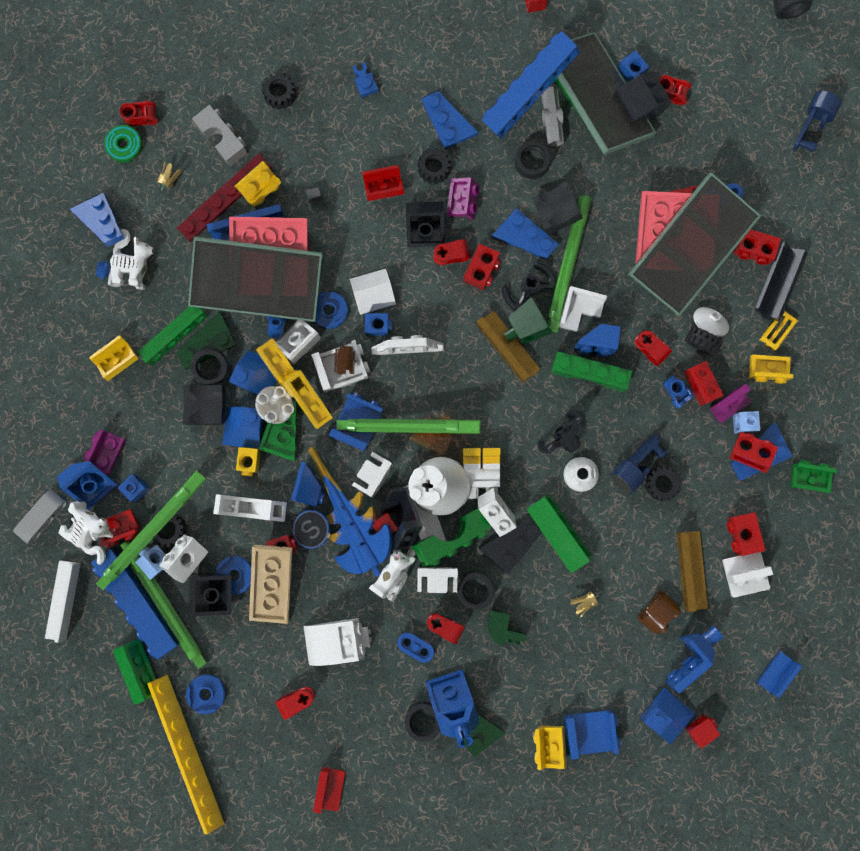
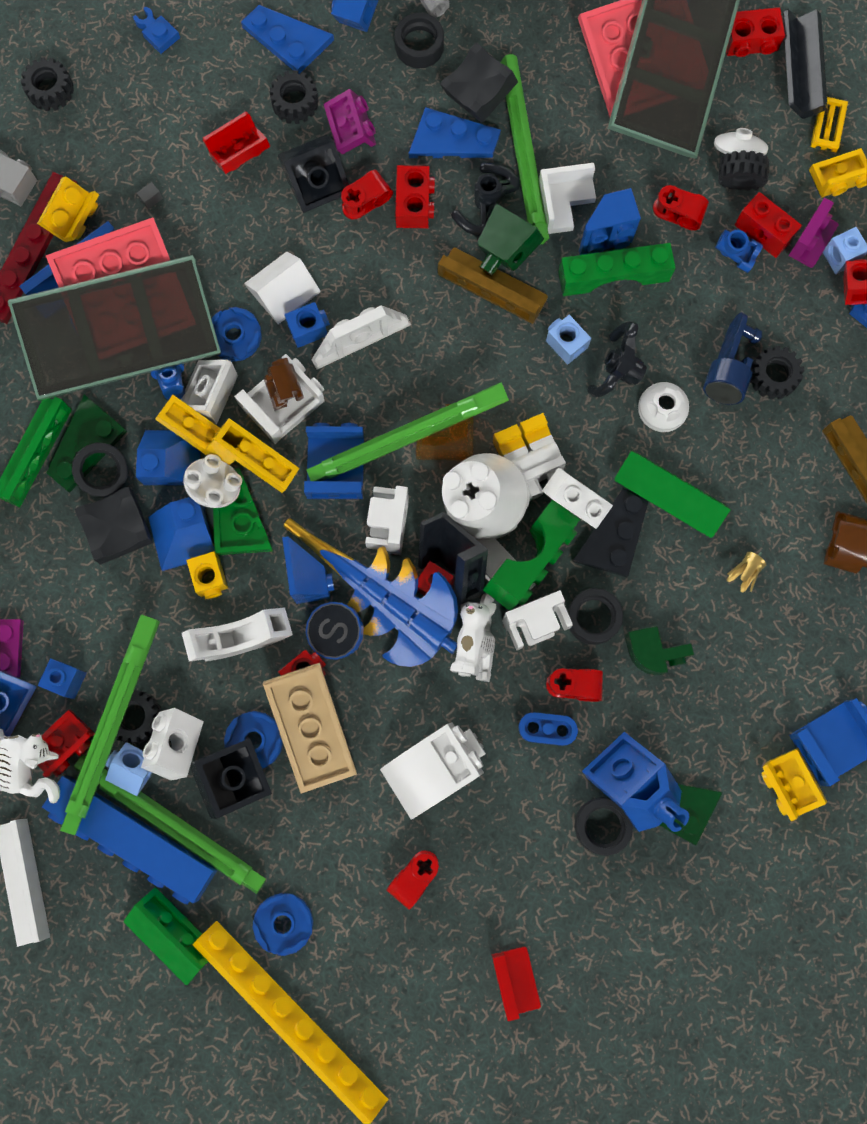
camera: 25 degrees left, 5 degrees down
(539, 412) = (567, 350): none -> light blue brick

